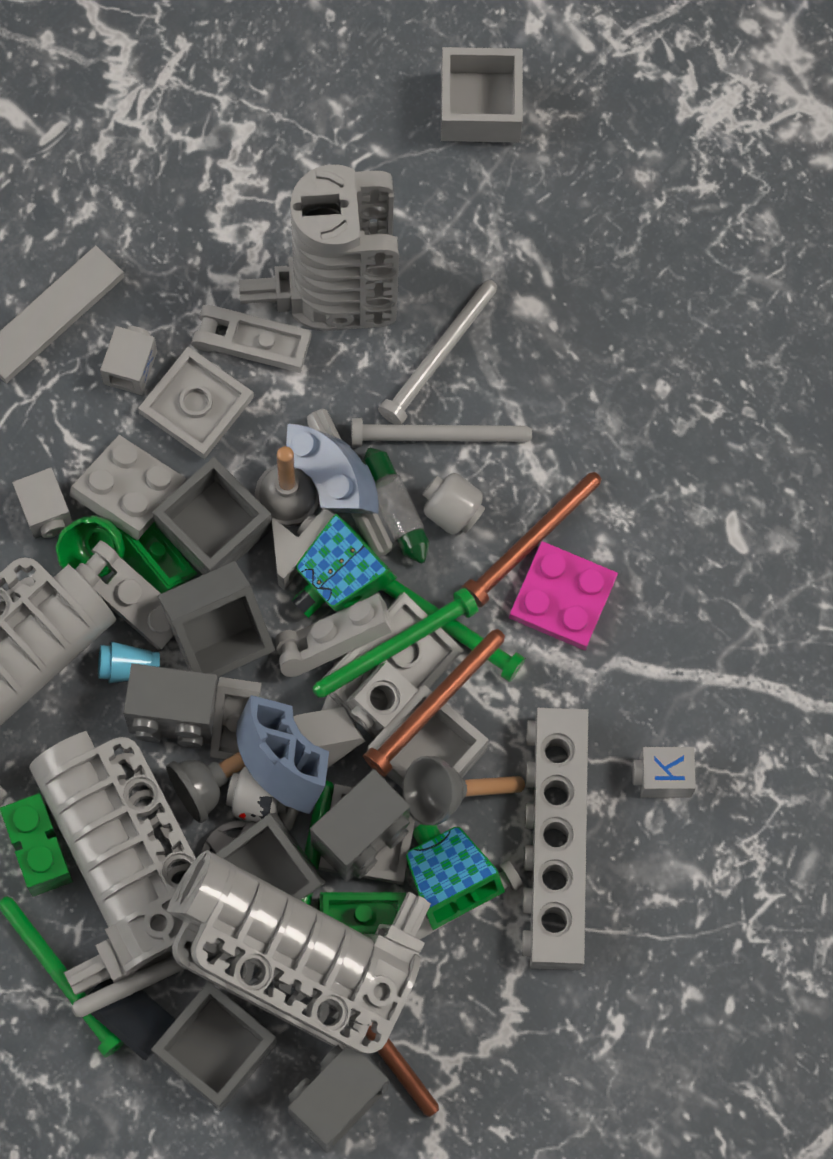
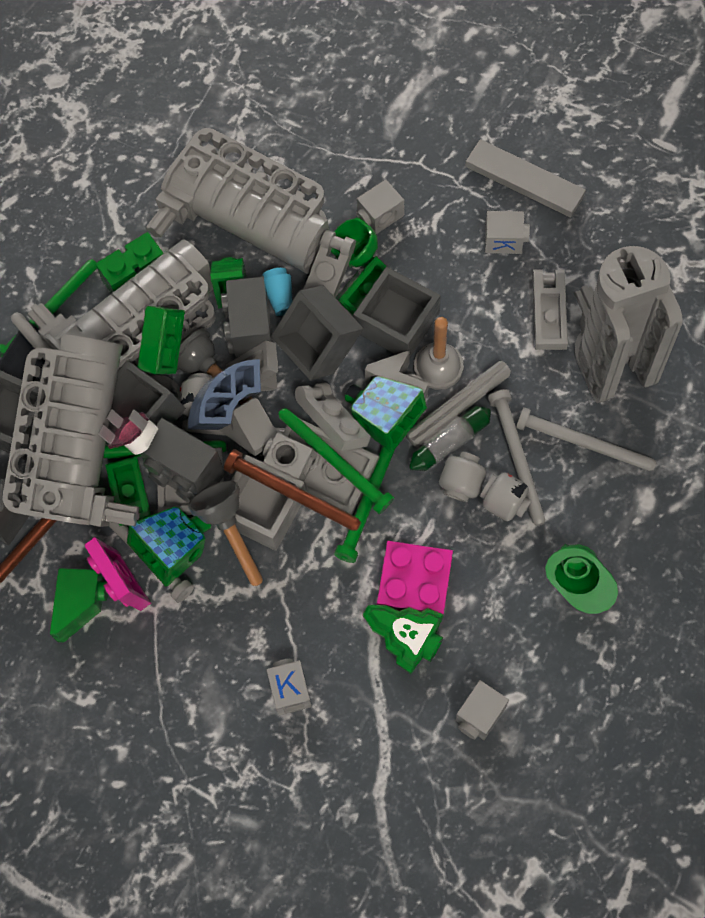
camera: 85 degrees right, 5 degrees down
(98, 714) = (225, 270): none -> green slope
(126, 486) = (408, 252): light grey plate -> none
(186, 815) = (161, 340): none -> green slope
(196, 402) = (487, 284): light grey plate -> none
(323, 868) = (133, 432): none -> piece
(336, 470) = (457, 380): sand blue brick -> none
(465, 951) = (120, 581): none -> dark pink plate
(492, 460) = (505, 496): none -> light grey head
(493, 1007) = (76, 601): none -> green slope
(531, 539) = (452, 543): copper bar -> none
(569, 731) = (235, 624): light grey brick -> none
(616, 403) = (582, 579): none -> green piece
(631, 620) = (406, 633): none -> green rock
(746, 561) = (481, 711): none -> light grey brick

